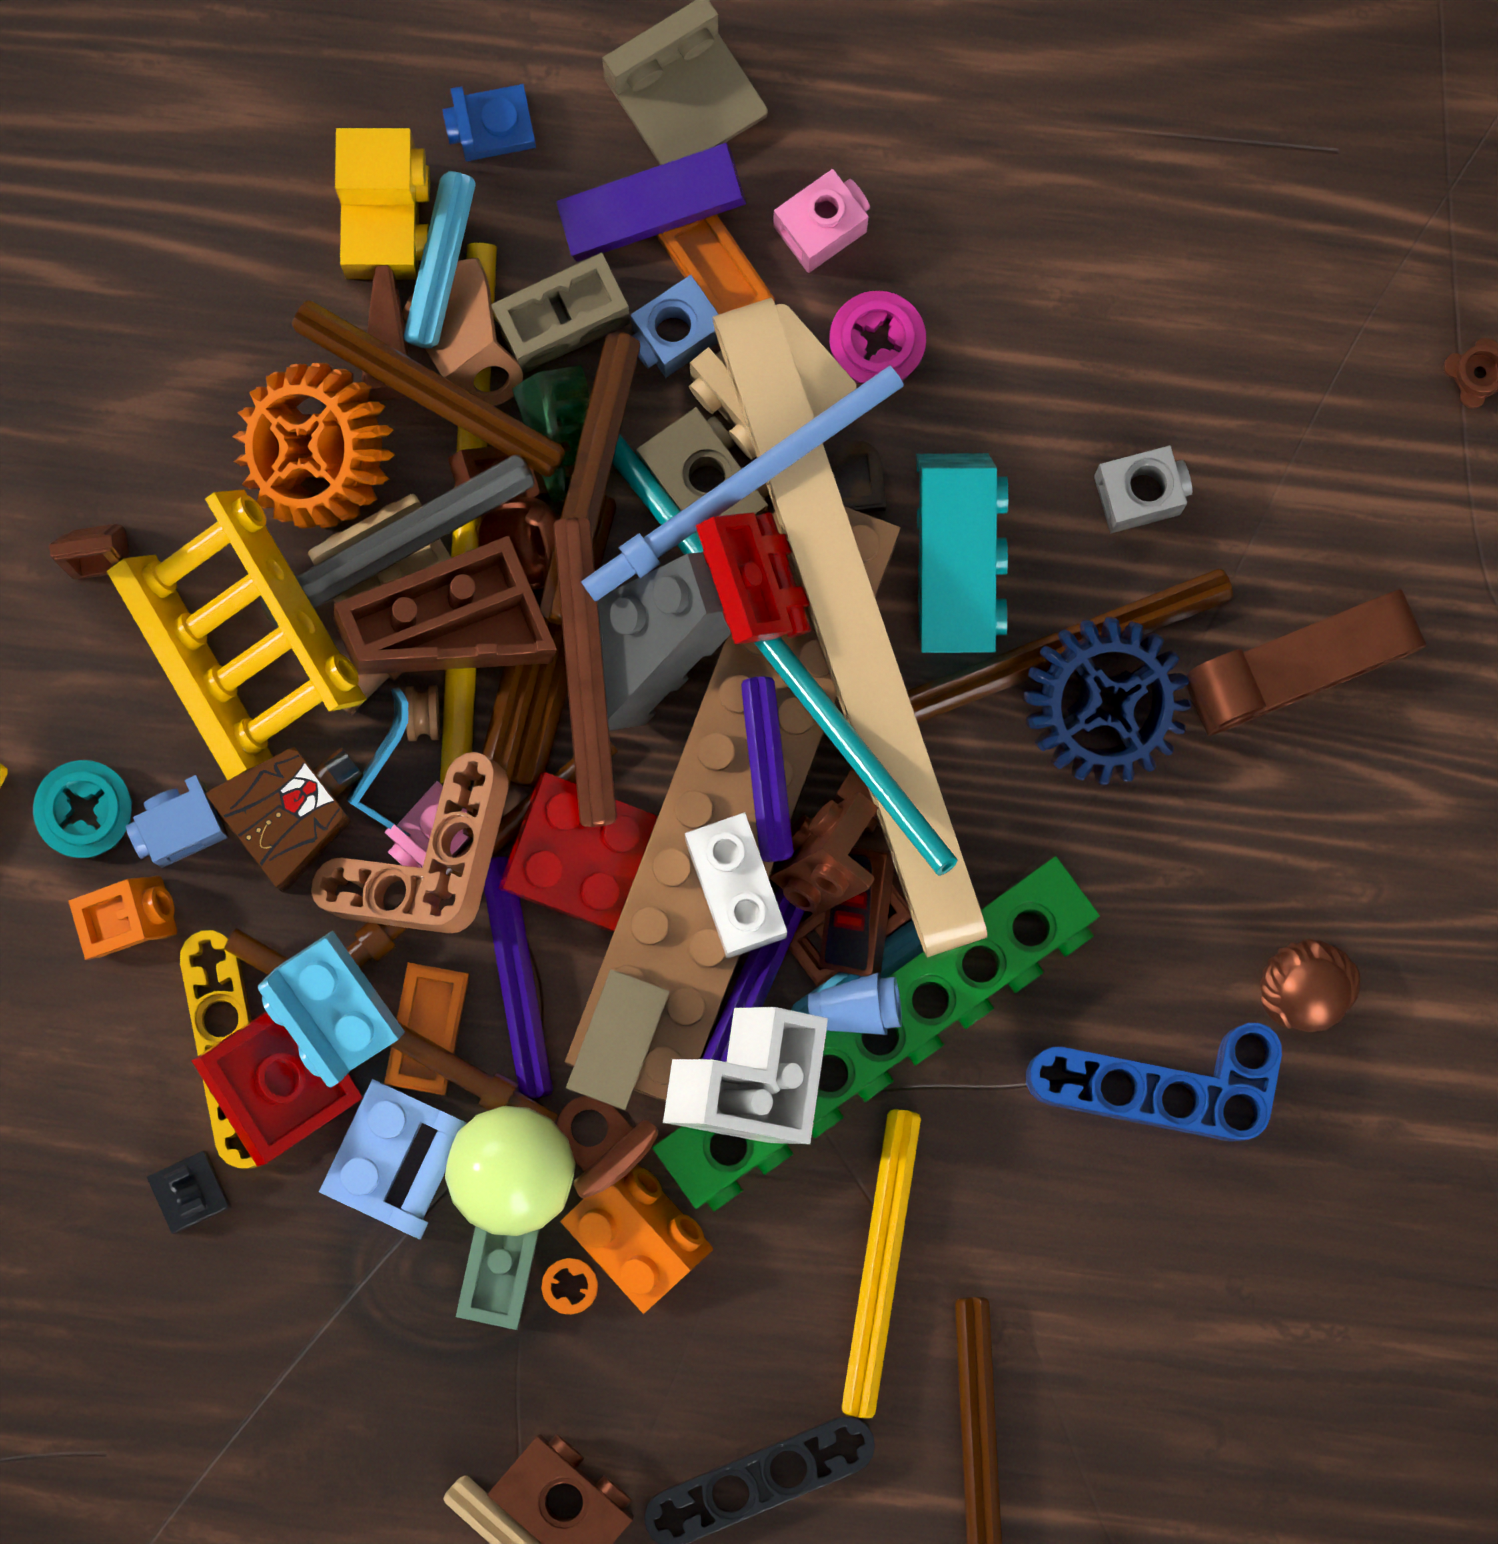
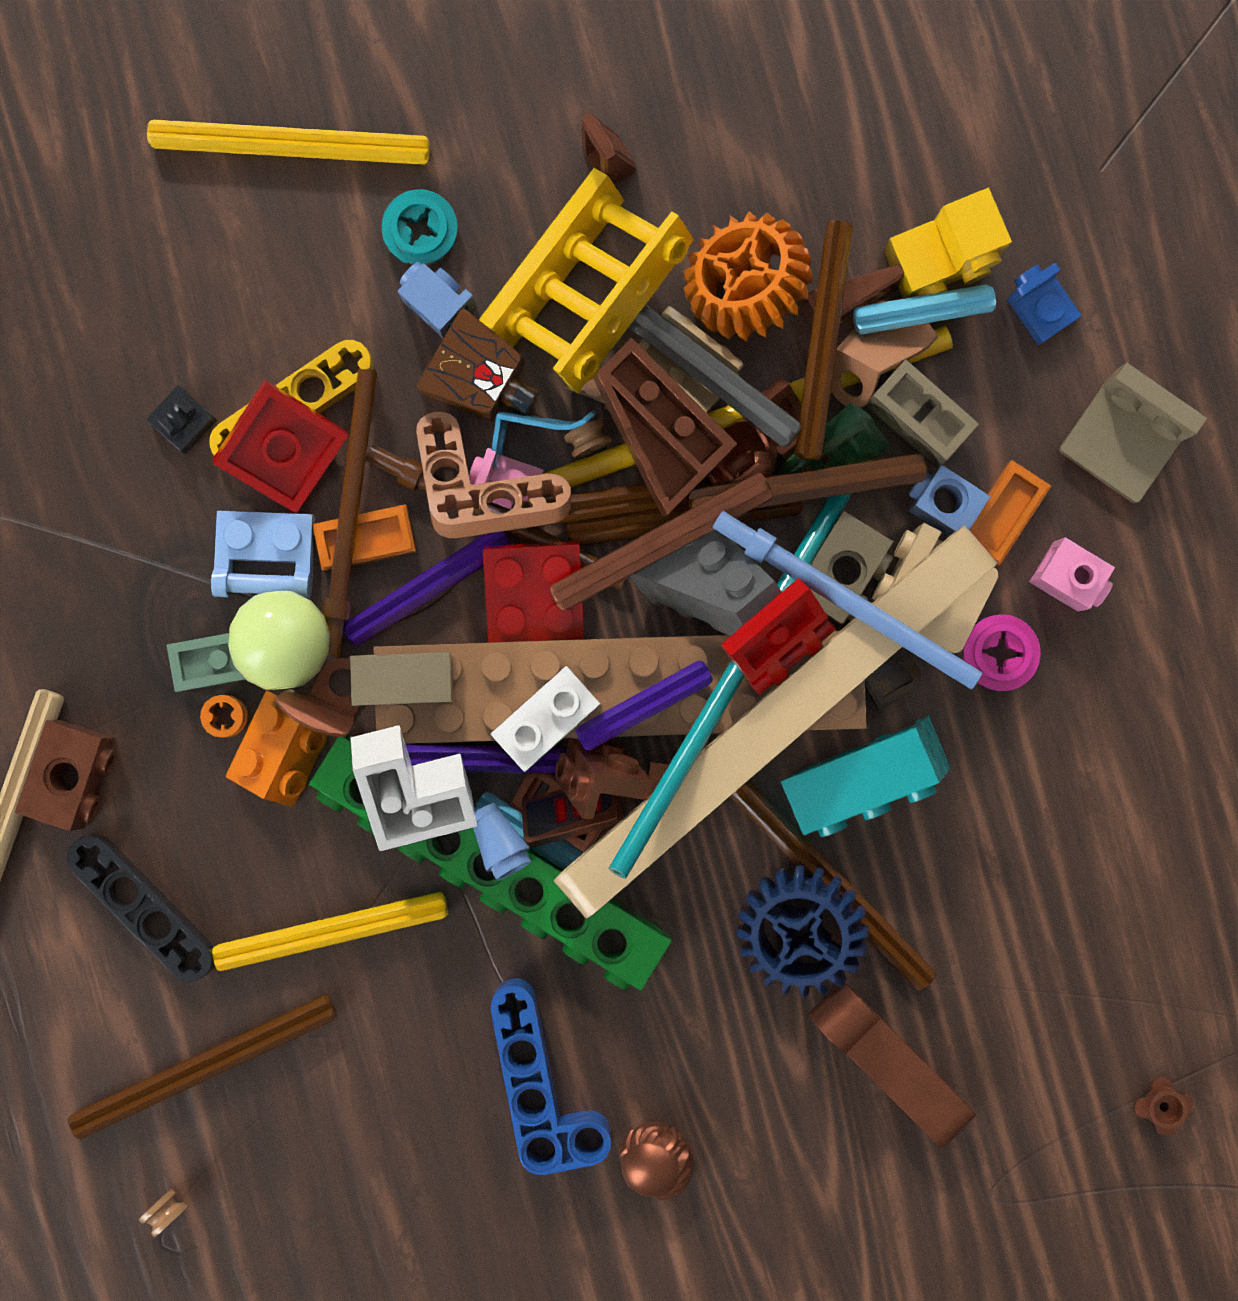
camera: 75 degrees right, 5 degrees up
(123, 915) = (355, 289): orange bracket -> none
(329, 1009) = (341, 461): medium azure bracket -> none
(651, 202) = (1033, 445): dark purple tile -> none
(1120, 504) = (956, 877): light grey brick -> none

